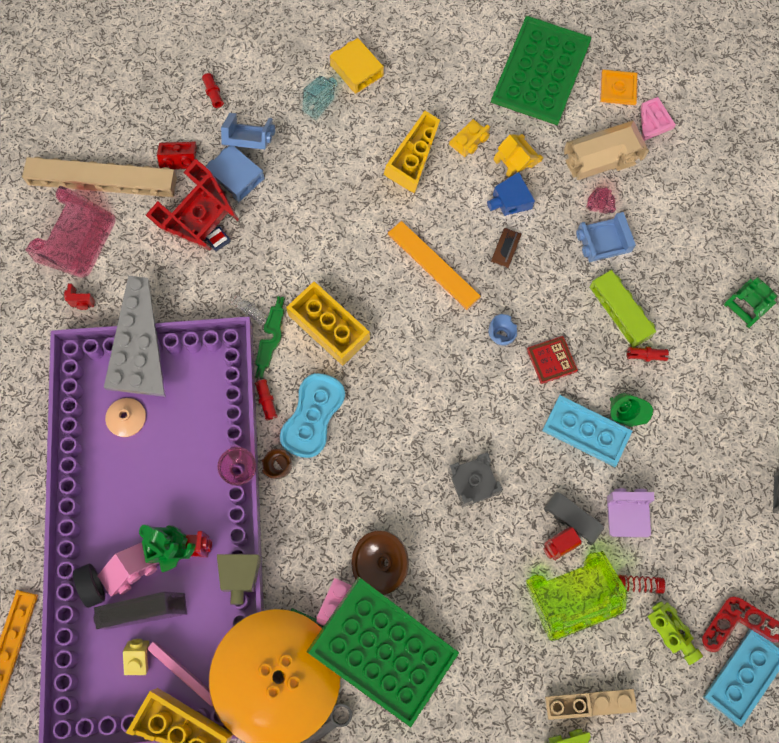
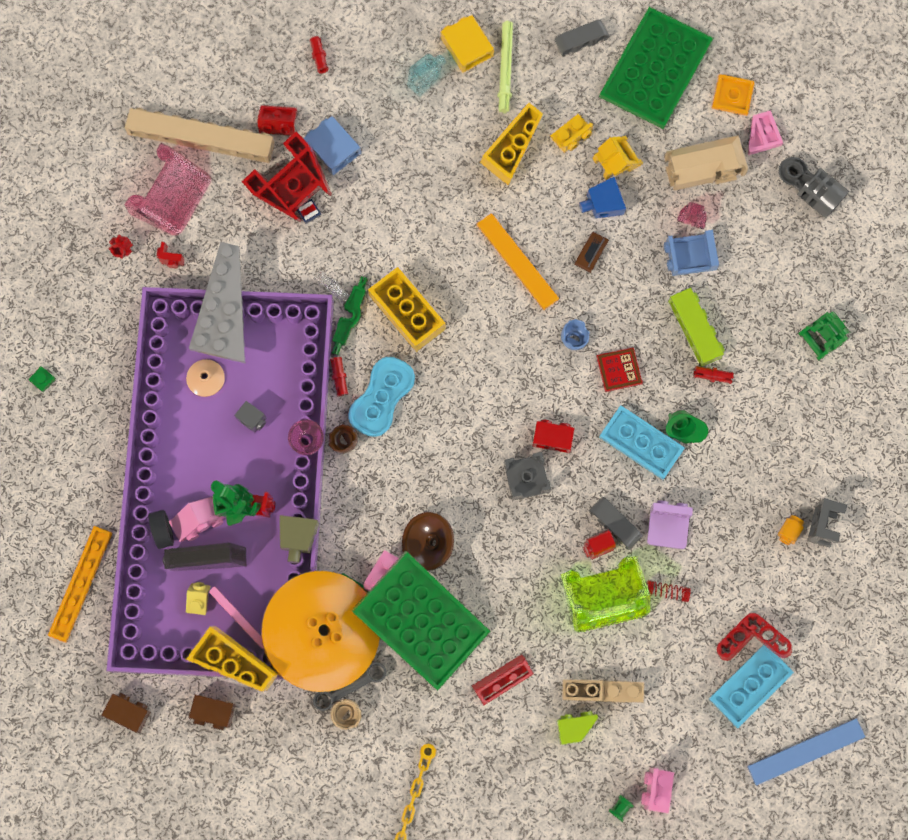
camera: 10 degrees right, 5 degrees up
(26, 293) = (120, 246): none -> red gear
(176, 452) = (251, 417): none -> dark grey brick
(246, 135) = (348, 107): medium blue panel -> none
(399, 108) = (505, 71): none -> yellowish green axle
(465, 49) = (582, 36): none -> dark grey beam
(477, 702) = (500, 677): none -> red slope
(496, 435) = (553, 436): none -> red brick
(669, 629) = (688, 636): lime brick -> none
(720, 165) = (817, 190): none -> dark grey cylinder
(755, 503) = (791, 530): none -> light orange brick

